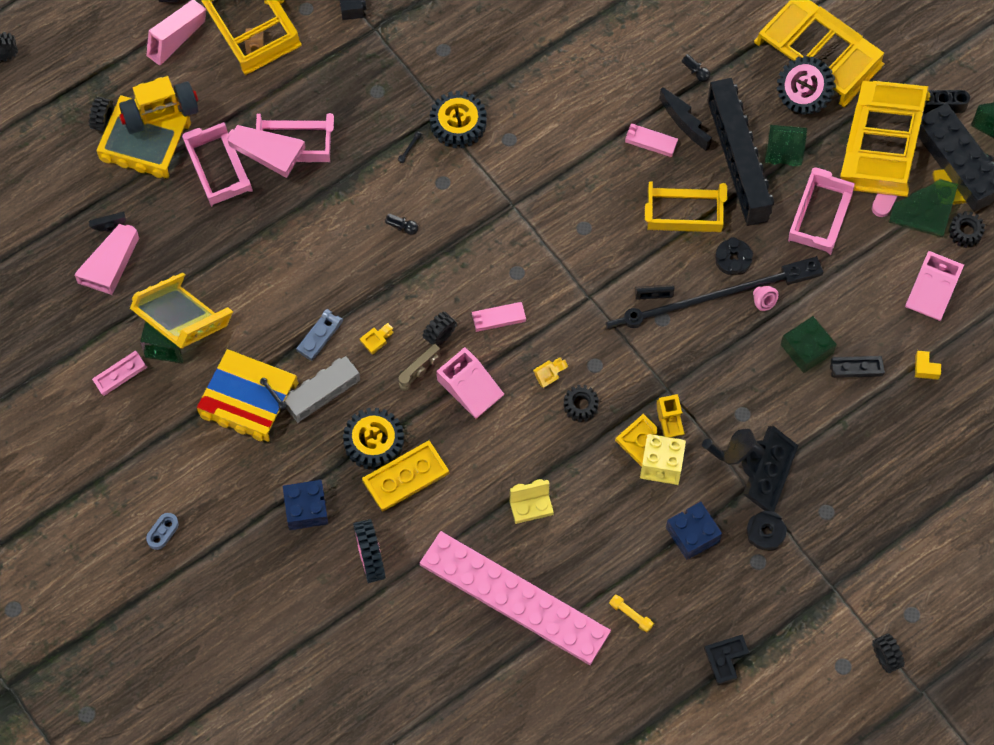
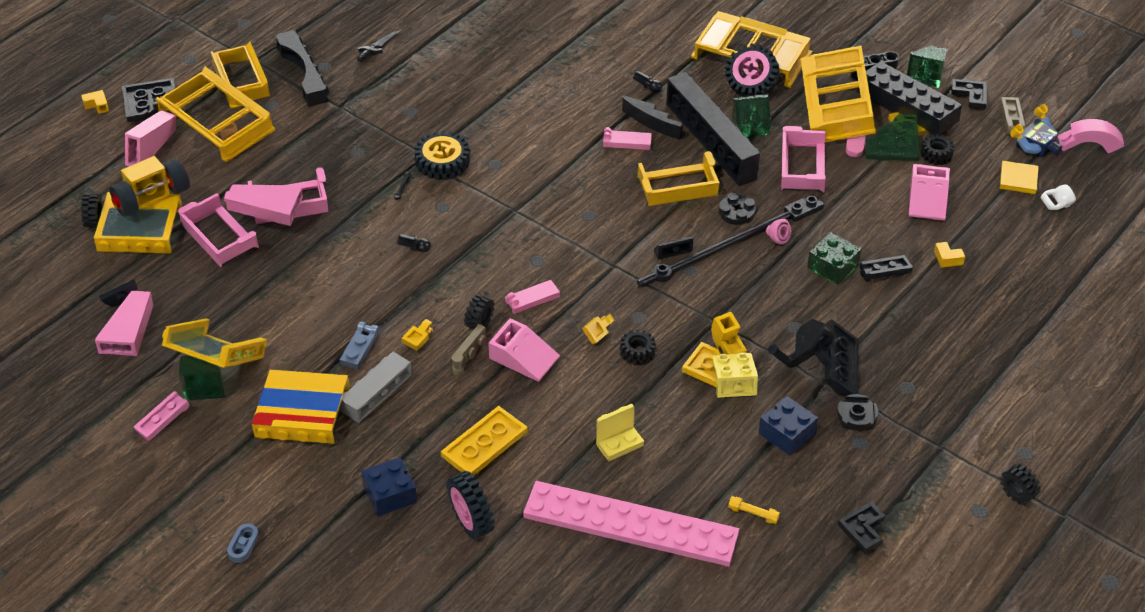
camera: 15 degrees left, 20 degrees down
(282, 405) = (340, 401): black hinge -> none
(370, 424) = (440, 407): wheel -> none

